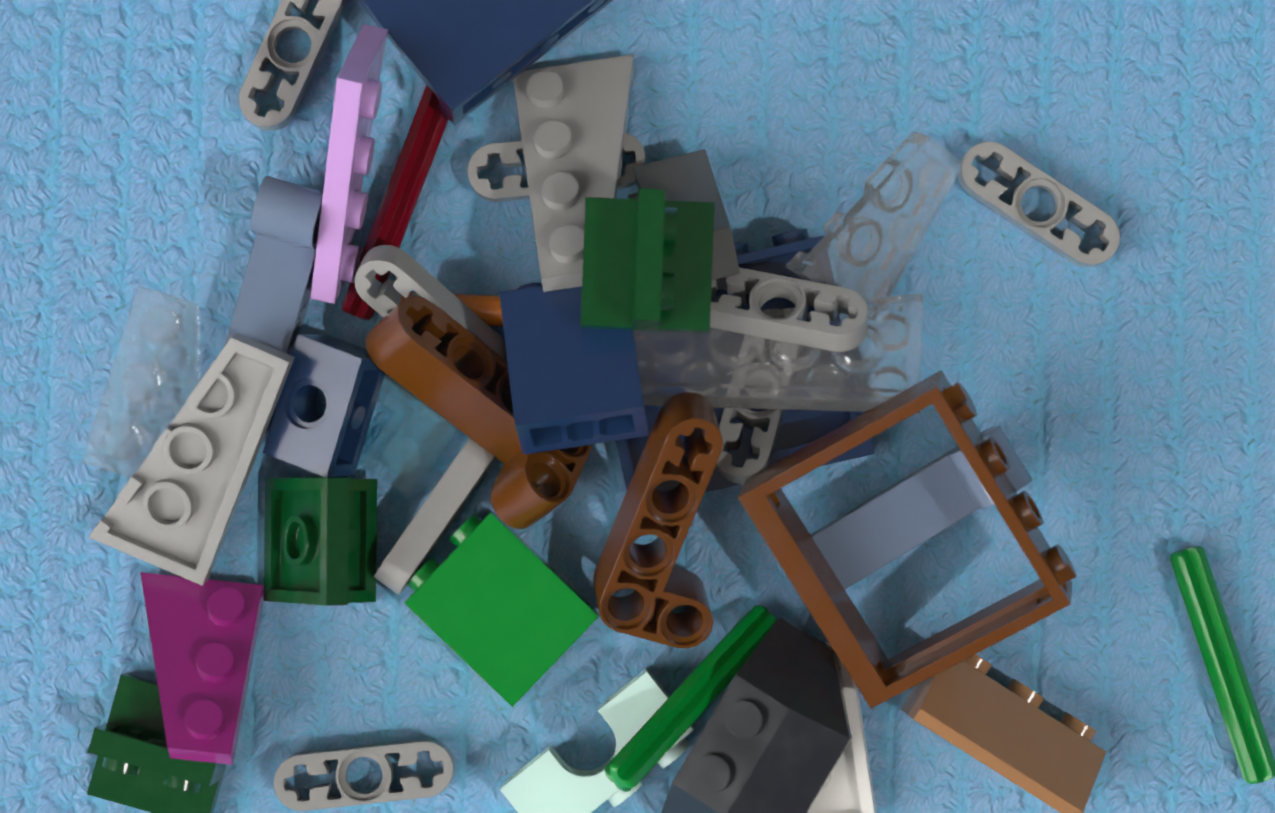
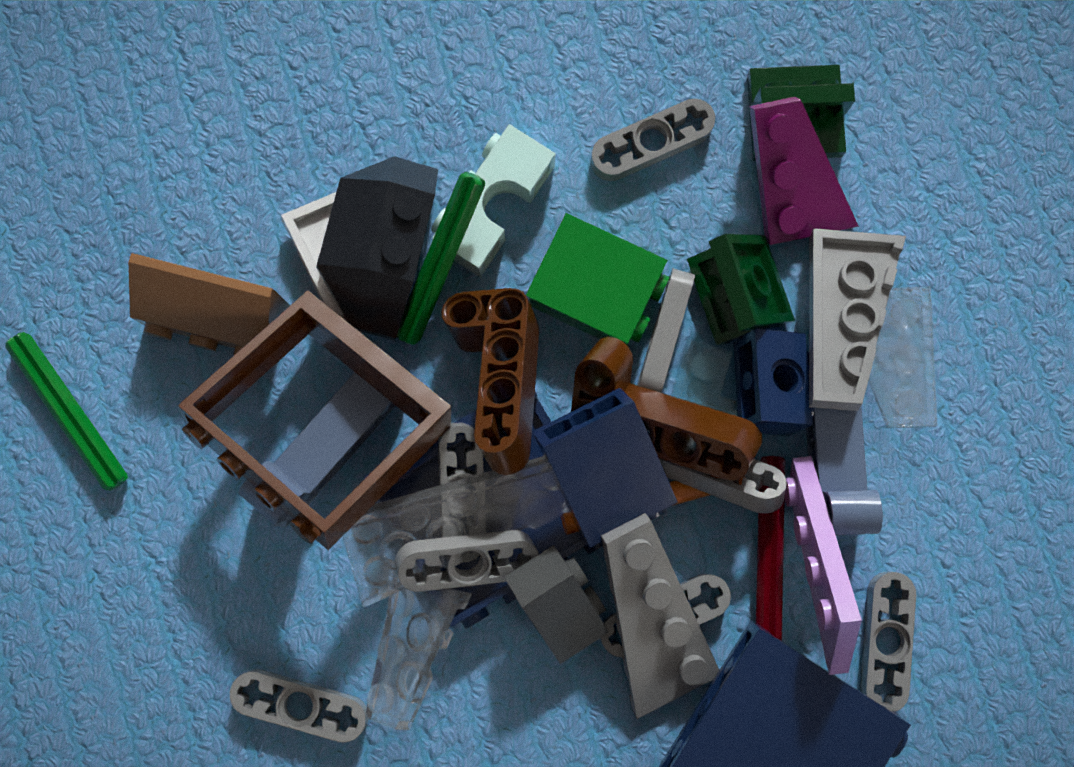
camera: 160 degrees right, 5 degrees down
(647, 264) = (575, 557): dark green bracket -> none

